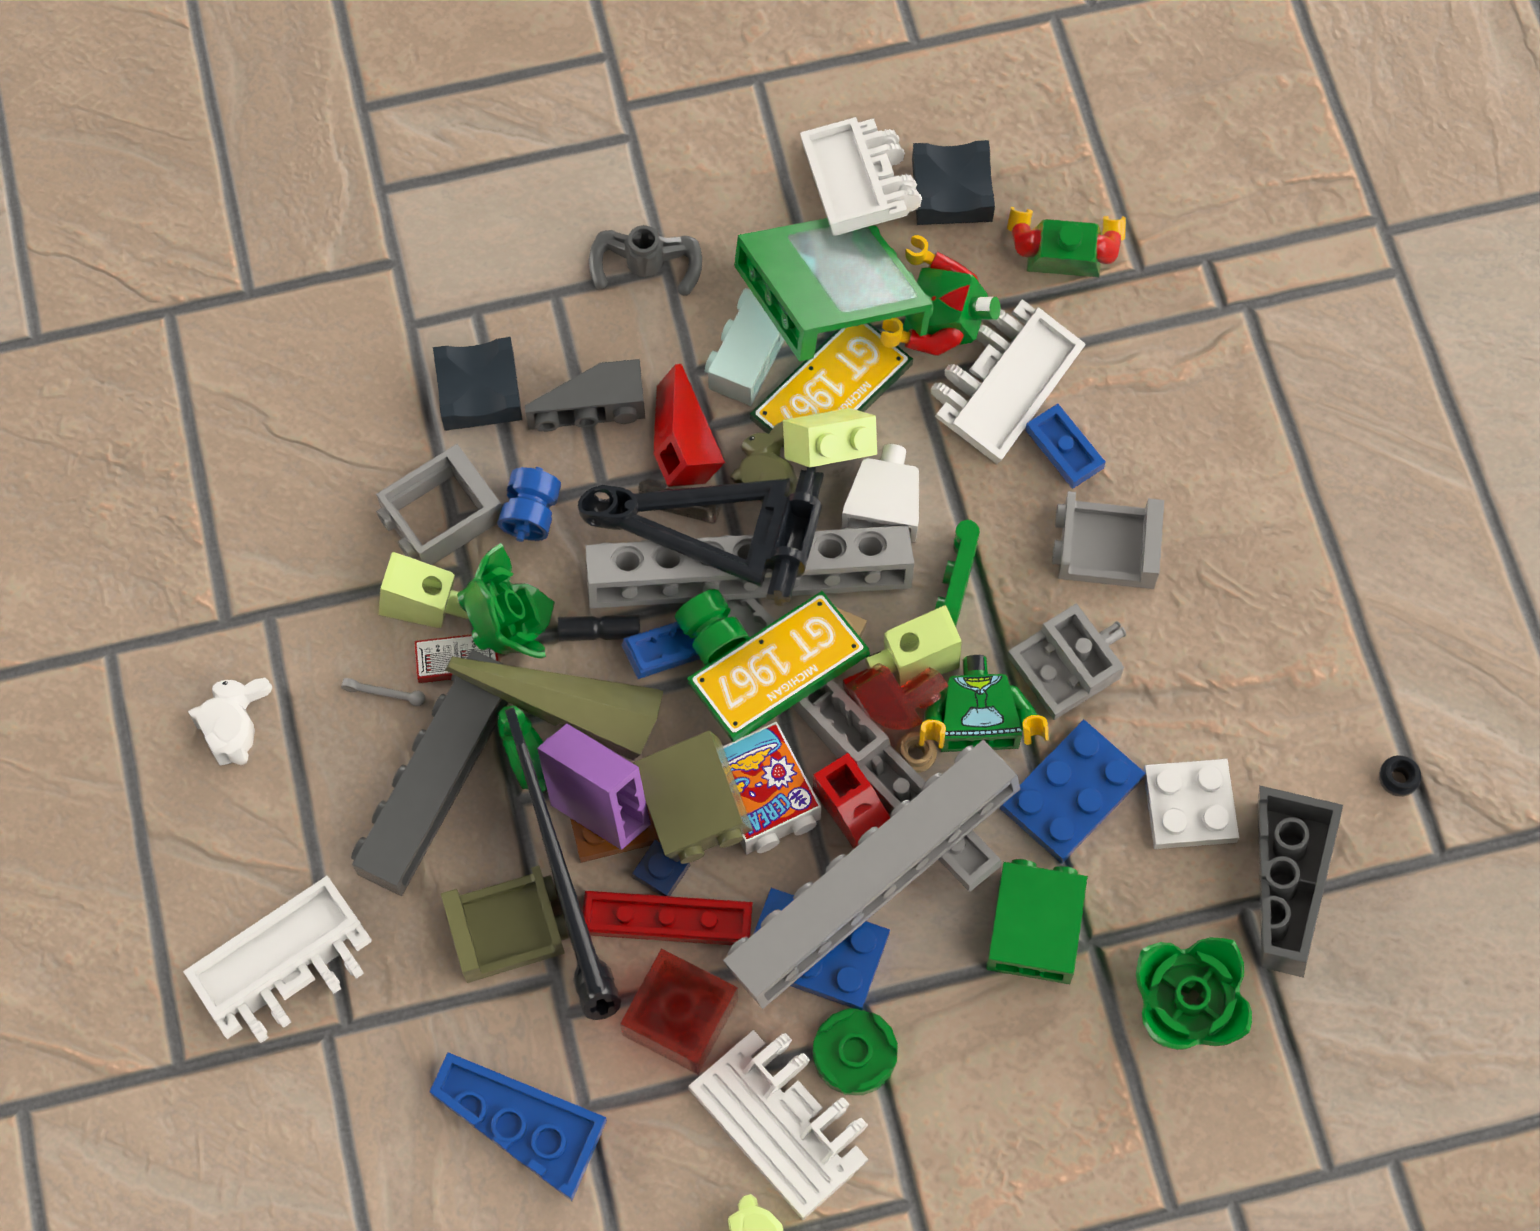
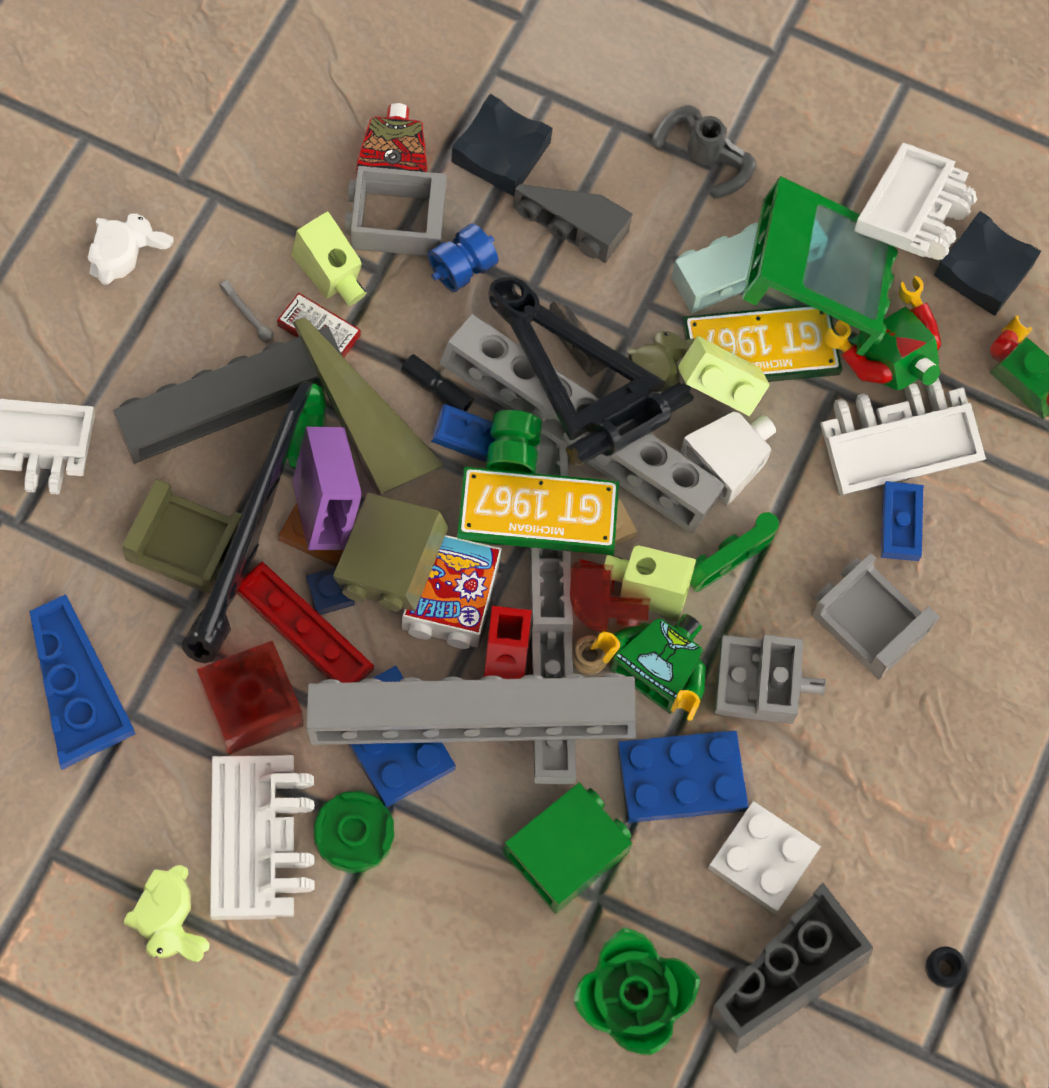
camera: 30 degrees right, 0 degrees up
(387, 451) = (394, 142): none -> torso
(505, 613) = (374, 318): green brick -> none
(681, 433) = (614, 299): red slope -> none

